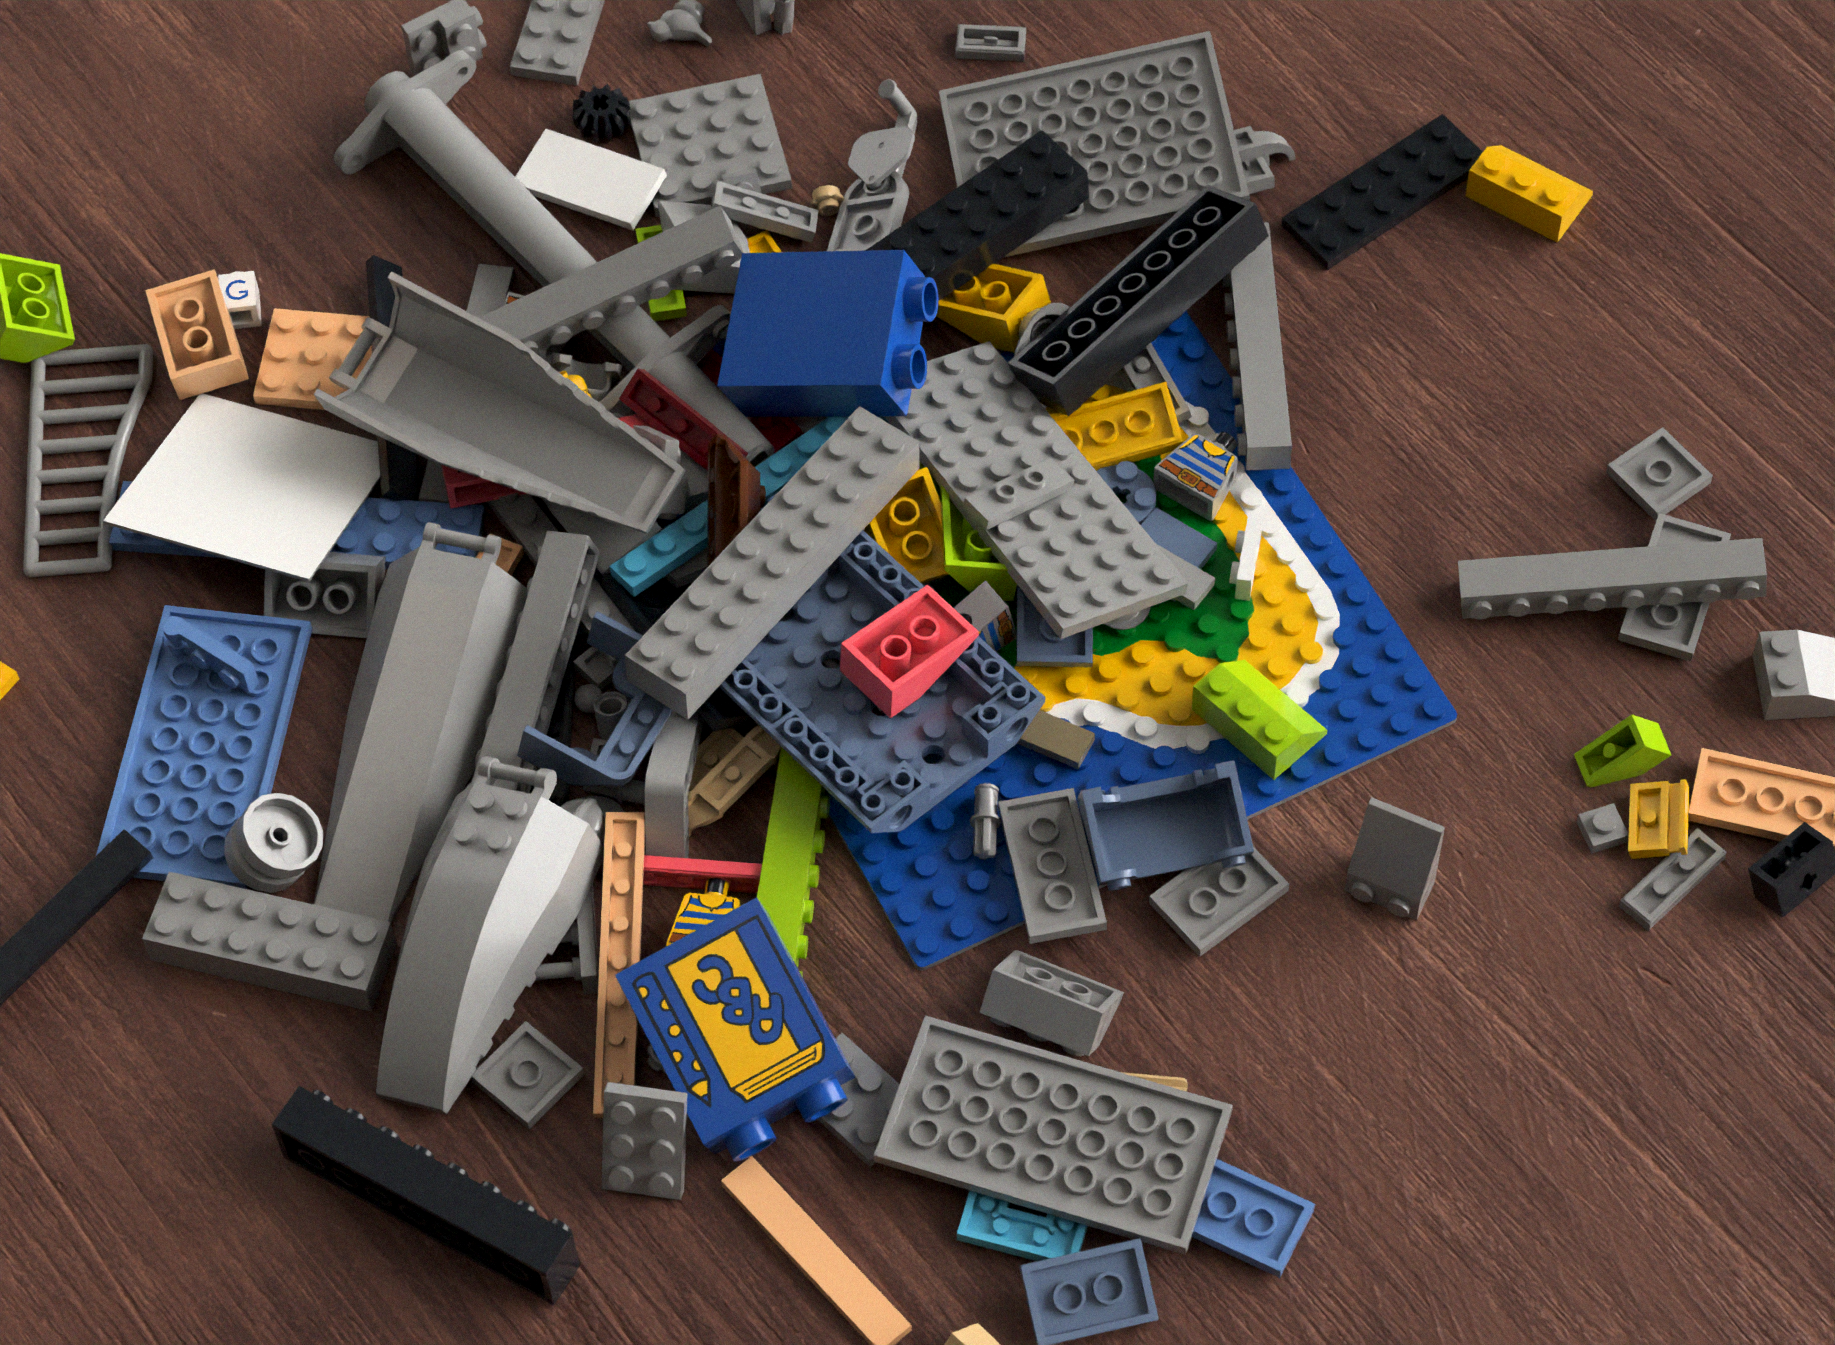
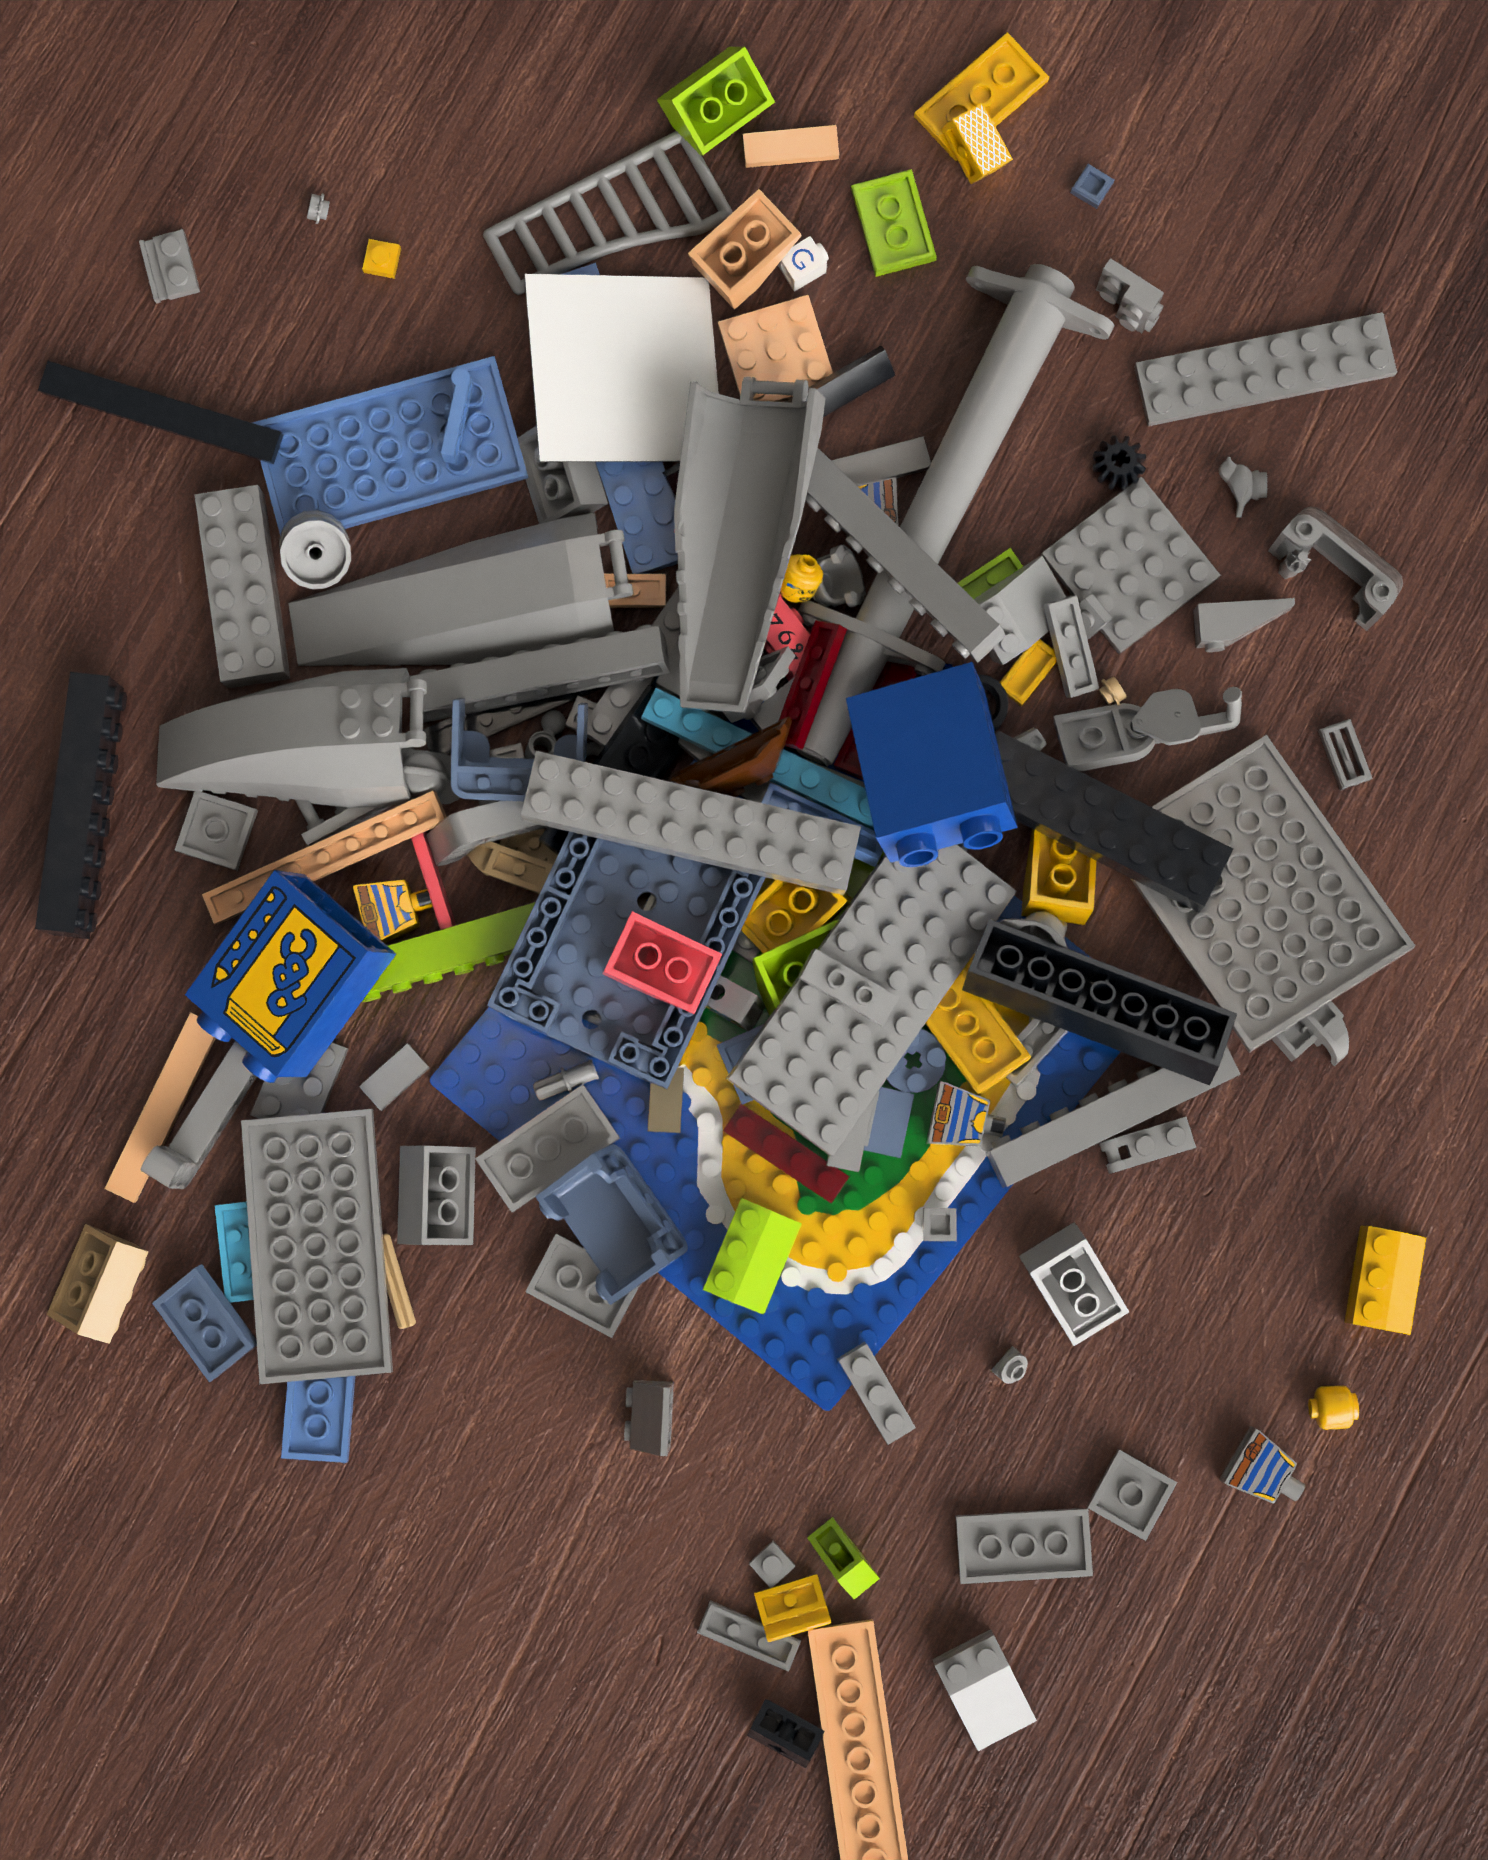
camera: 70 degrees right, 25 degrees up
(112, 271) = (791, 146): none -> light nougat tile
(166, 99) = (997, 78): none -> yellow tile
(213, 109) = (976, 143): none -> yellow panel
(245, 215) = (893, 223): none -> lime tile
(313, 42) = (1092, 186): none -> sand blue tile
(590, 179) = (1045, 485): white tile -> none
(644, 1140) = (178, 947): light grey plate -> none
(808, 87) = (1228, 622): none -> light grey slope
(882, 1237) = (180, 1161): none -> light grey beam
(897, 999) = (394, 1077): none -> light grey tile
(1163, 647) = (786, 1153): none -> dark red plate
(1248, 545) = (879, 1190): white plate -> none
(1303, 334) = (1149, 1144): none -> light grey plate
(1303, 533) = (939, 1224): none -> light grey plate
(1383, 192) = (1332, 1156): black plate -> none
(1416, 443) = (1074, 1283): none -> light grey slope
(1457, 660) = (876, 1393): none -> light grey plate
(1480, 533) = (1011, 1366): none -> light grey plate
(1612, 578) = (998, 1496): light grey brick -> none
(1639, 271) = (1334, 1407): none -> yellow head
(1676, 353) = (1262, 1469): none -> torso

